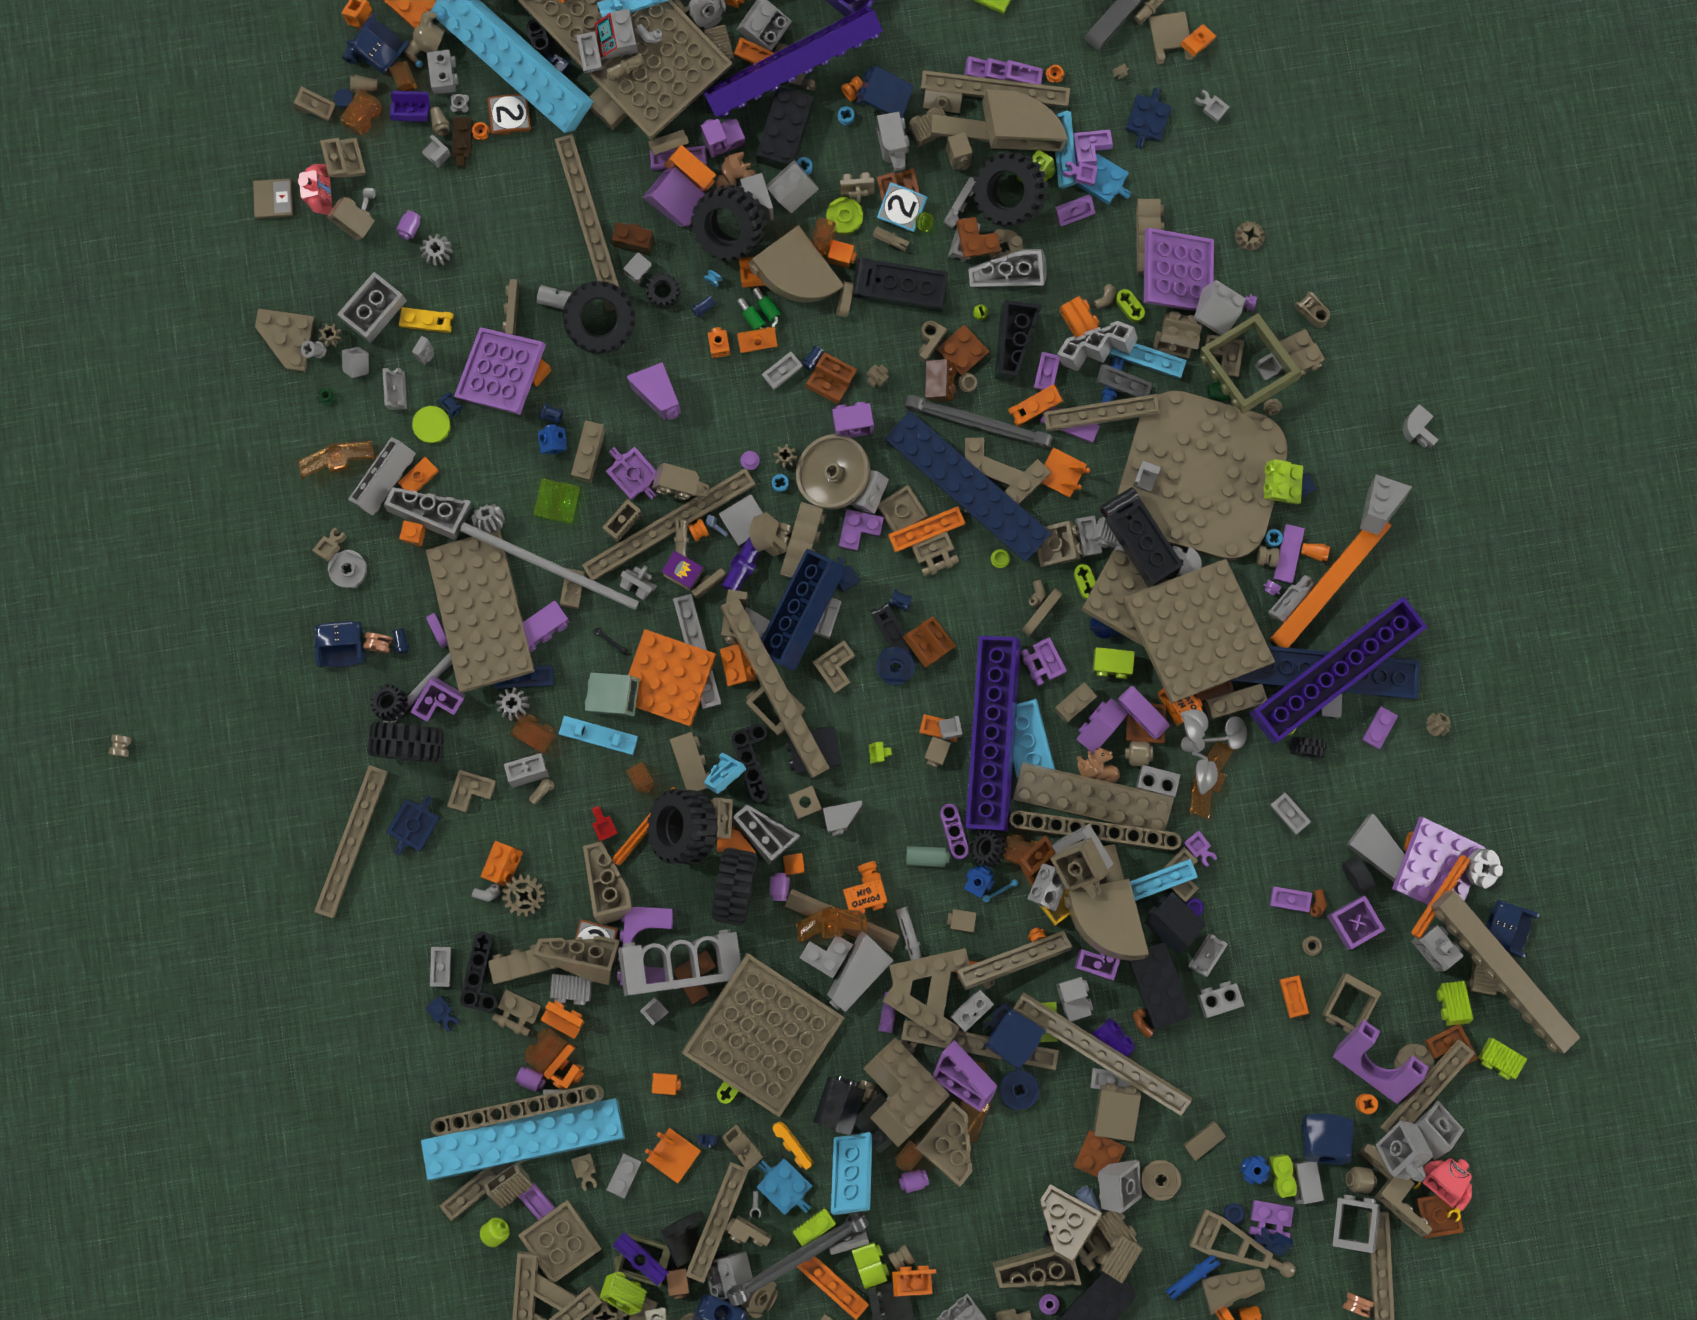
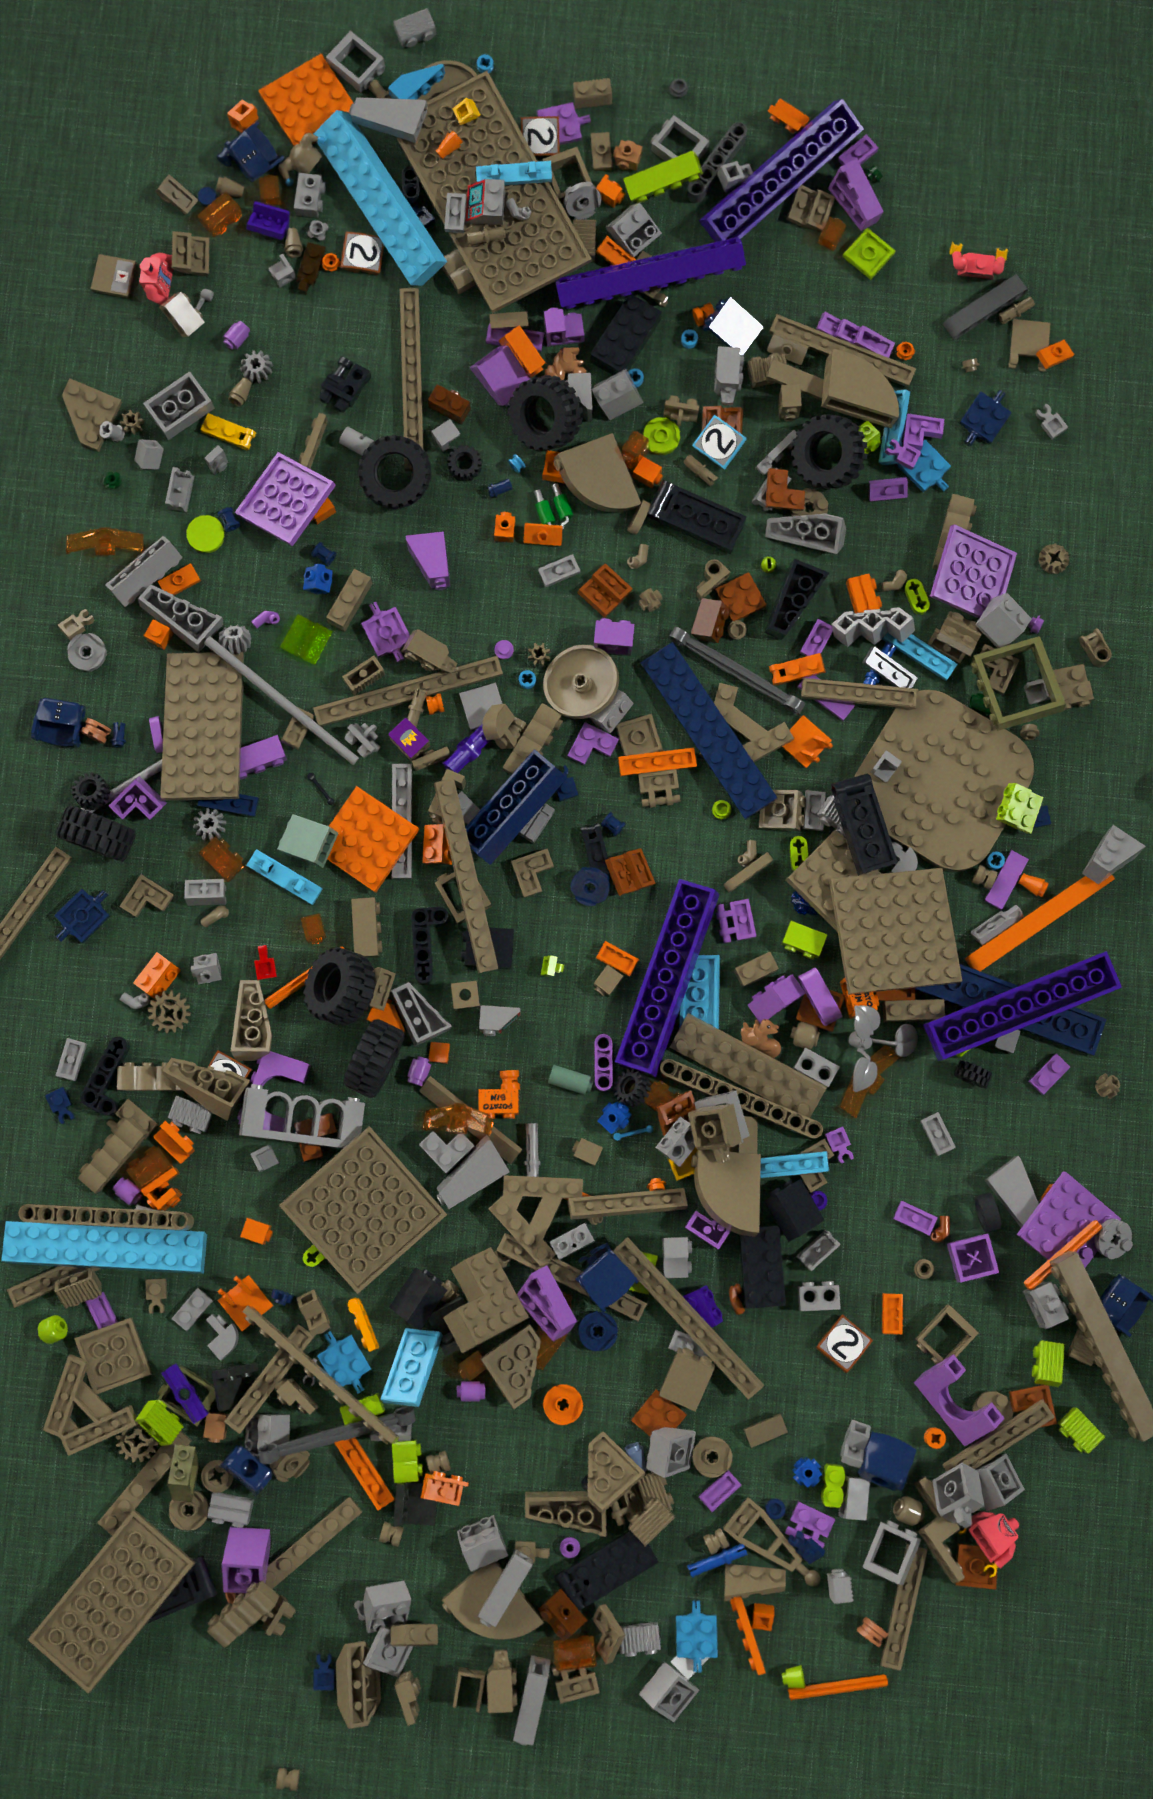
camera: 15 degrees right, 0 degrees up
(427, 279) = (240, 392): none -> dark tan cone
(507, 1047) = (112, 1155): none -> dark tan brick
(512, 489) = (266, 617): none -> medium lavender arm
(526, 251) = (347, 389): none -> black hips
(548, 843) = (206, 968): none -> light grey brick
(665, 1194) = (227, 1337): none -> light grey brick
(711, 523) = (449, 700): sand blue hand -> none
(724, 773) = (394, 946): medium azure wing -> none
(773, 1209) = (326, 1380): none -> dark tan plate
(812, 358) = (594, 564): dark blue pin -> none
(857, 338) = (640, 559): none -> dark tan arm
(888, 1019) = (489, 1227): medium lavender piece -> none
(924, 221) = (737, 462): clear neon green tile -> none
(950, 728) = (626, 961): light grey panel -> none
(1013, 1177) = (572, 1397): none -> orange plate
(1176, 1210) = (719, 1490): none -> medium lavender tile
(1186, 1259) = (716, 1541): none -> dark tan wheel
(1256, 1037) = (844, 1343): none -> slope
(1272, 587) = (980, 908): medium lavender plate -> none
(1292, 1130) = (855, 1443): none -> light grey brick
(1316, 1270) = (839, 1586): none -> light grey brick

